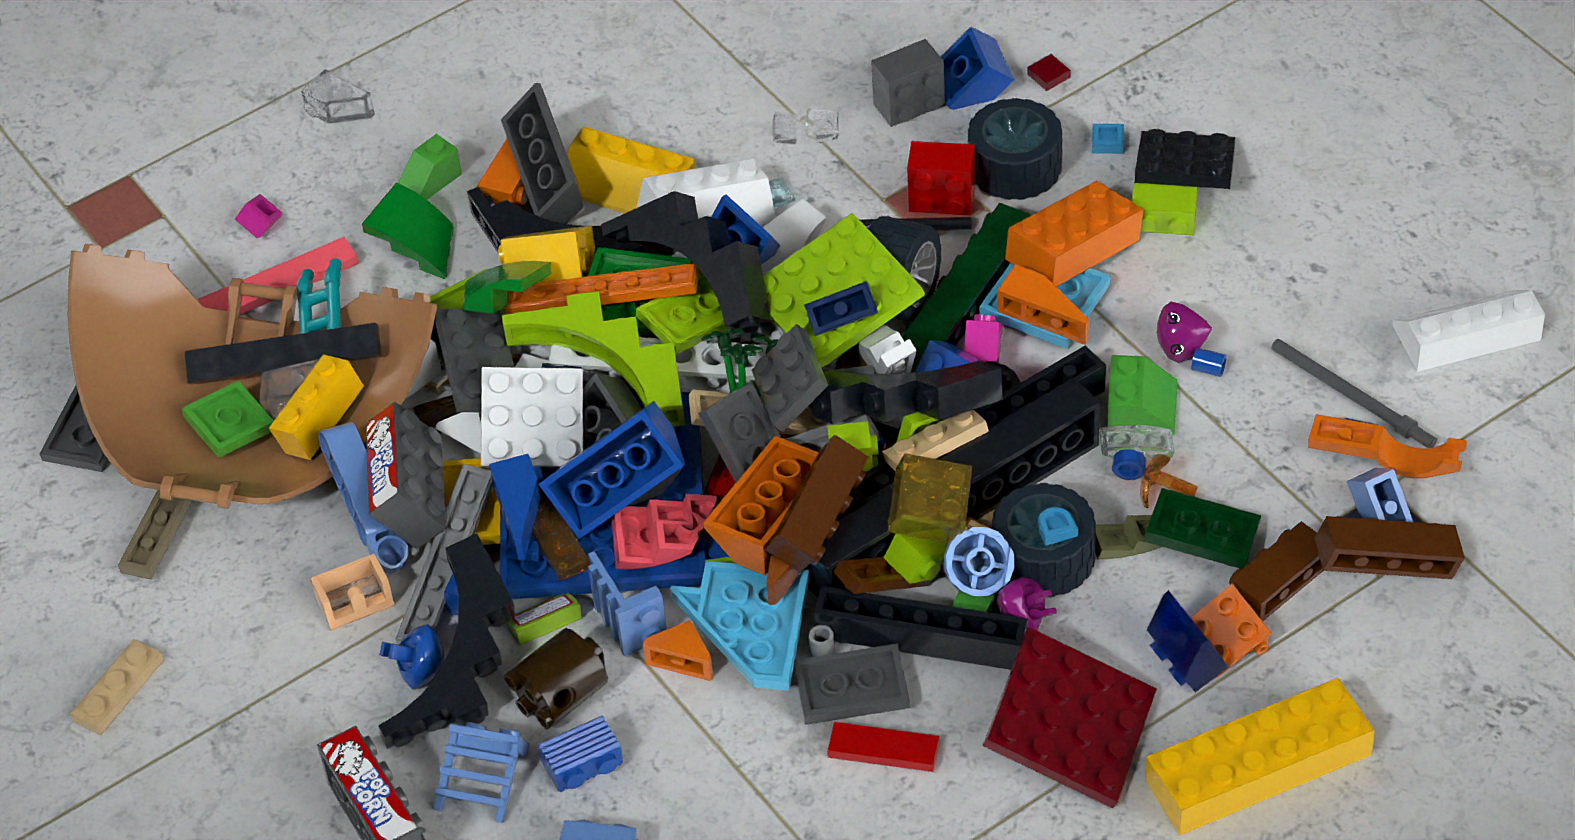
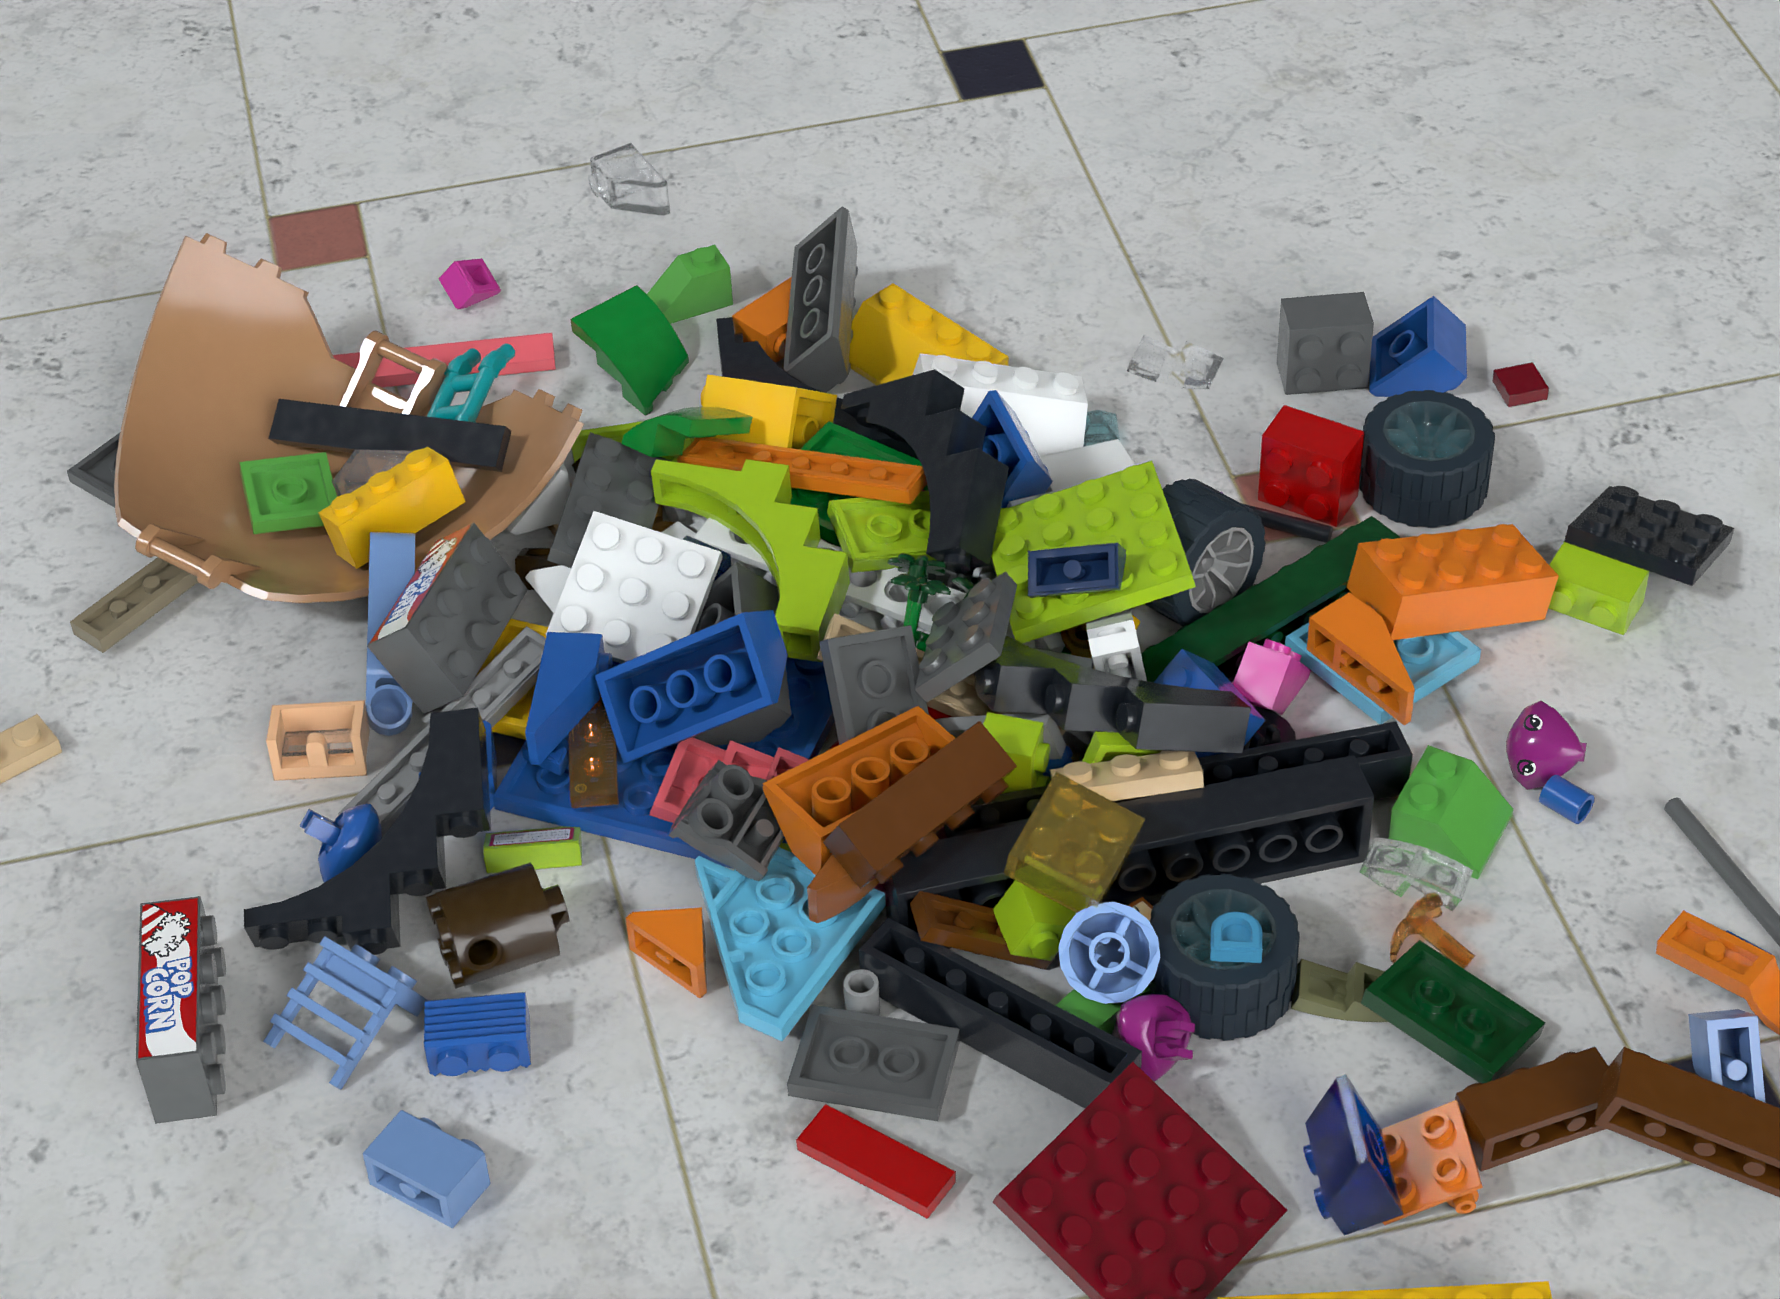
camera: 20 degrees right, 5 degrees down
(629, 618) = (630, 877): medium blue plate -> none
(685, 554) = (731, 821): none -> dark grey slope
(1108, 138) = (1561, 484): dark azure tile -> none
(1129, 464) = (1390, 896): blue tile -> none

